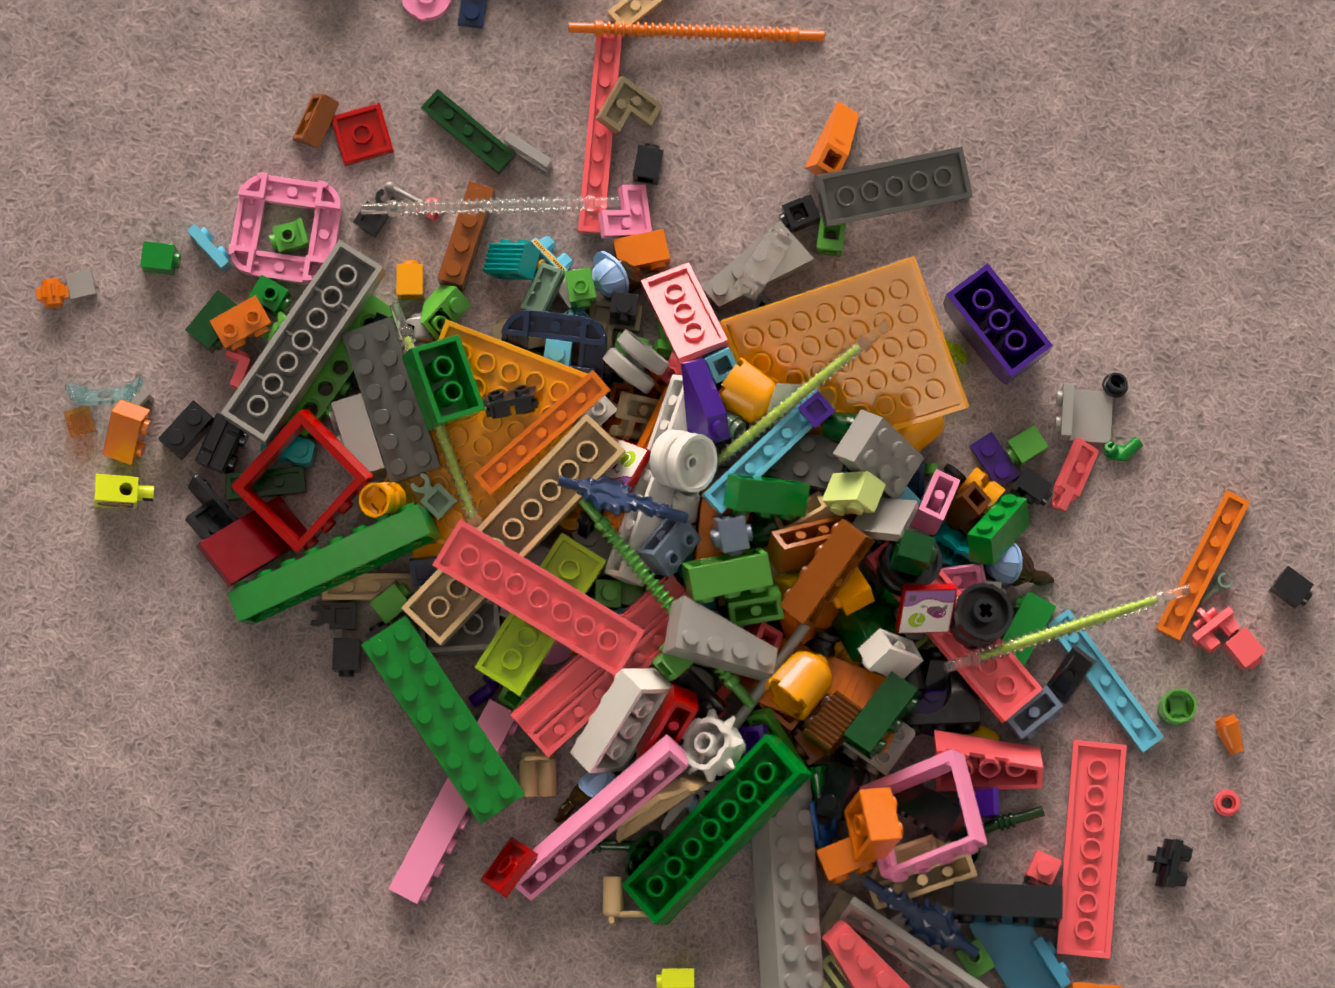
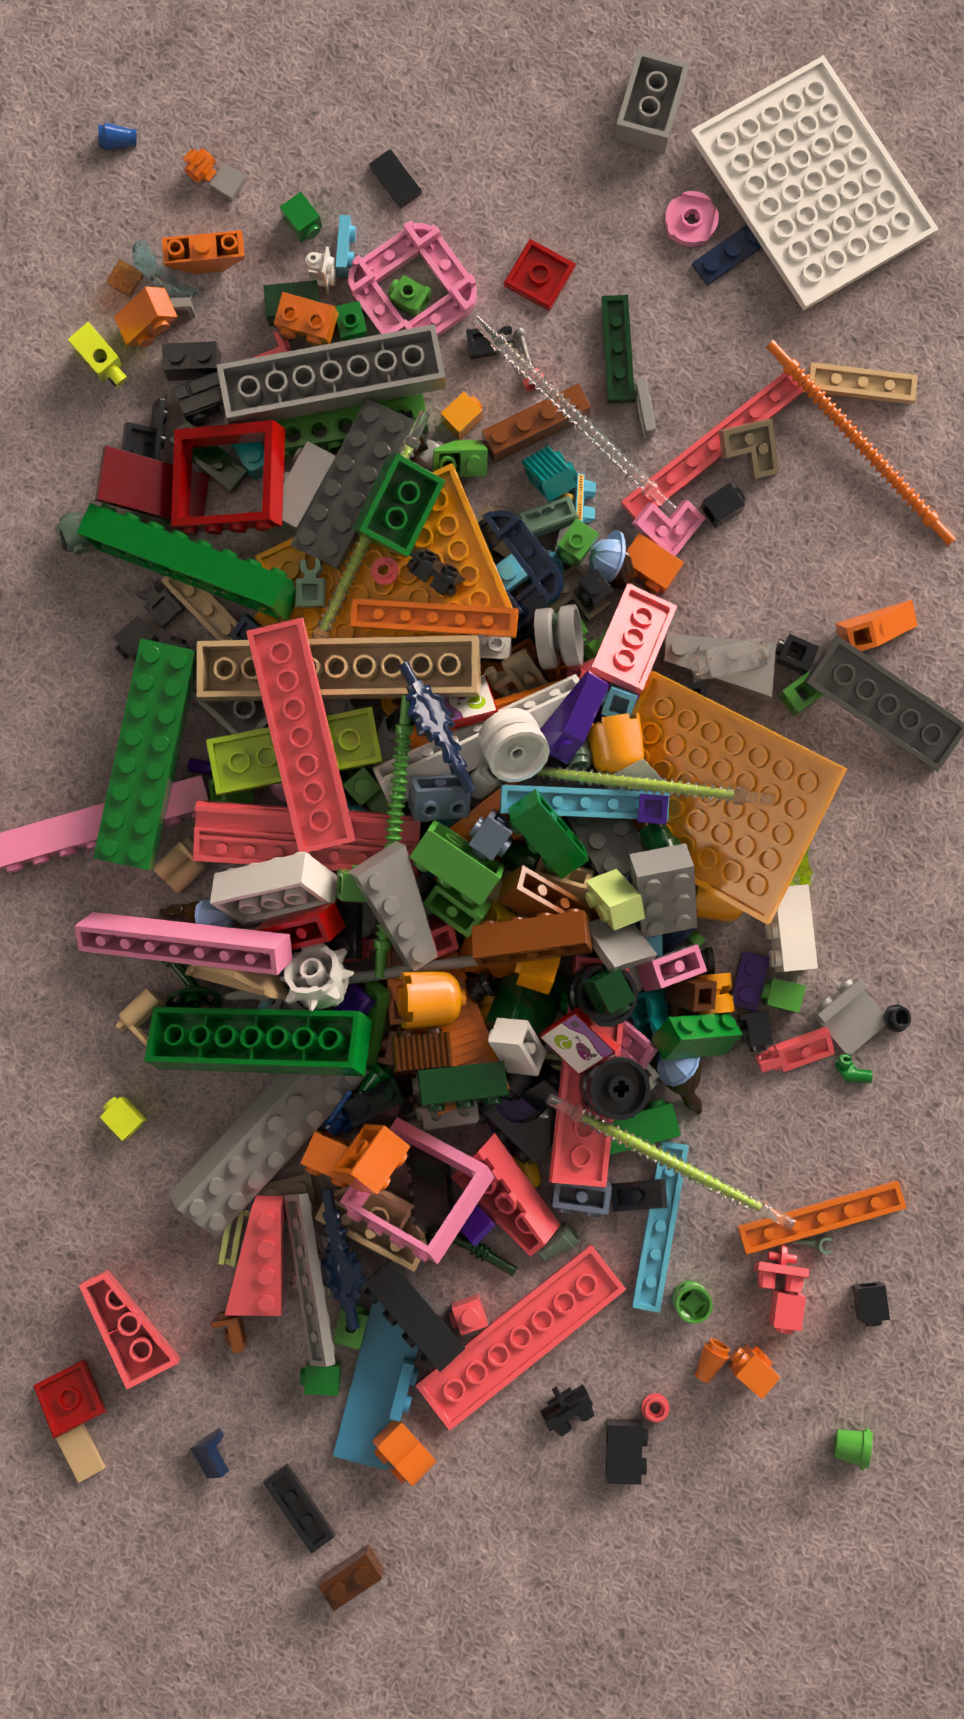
camera: 45 degrees right, 5 degrees up
(118, 347) = (203, 251): none -> orange slope
(194, 167) = (395, 178): none -> black tile
(213, 279) = (321, 268): none -> white hinge
(227, 628) = (67, 533): none -> sand green head
(316, 120) = (516, 231): dark orange slope -> none
(382, 499) = (268, 548): light orange wheel -> none
(390, 600) = (204, 630): bright green brick -> none
(483, 435) = (391, 575): none -> coral plate
(509, 867) = (88, 910): red tile -> none
(990, 399) = (792, 932): none -> white brick
(996, 325) = (855, 883): dark purple brick -> none
(1052, 760) = (562, 1241): none -> sand green cone
(1237, 851) = (624, 1451): none -> black brick
(1261, 708) = (753, 1369): none -> orange brick

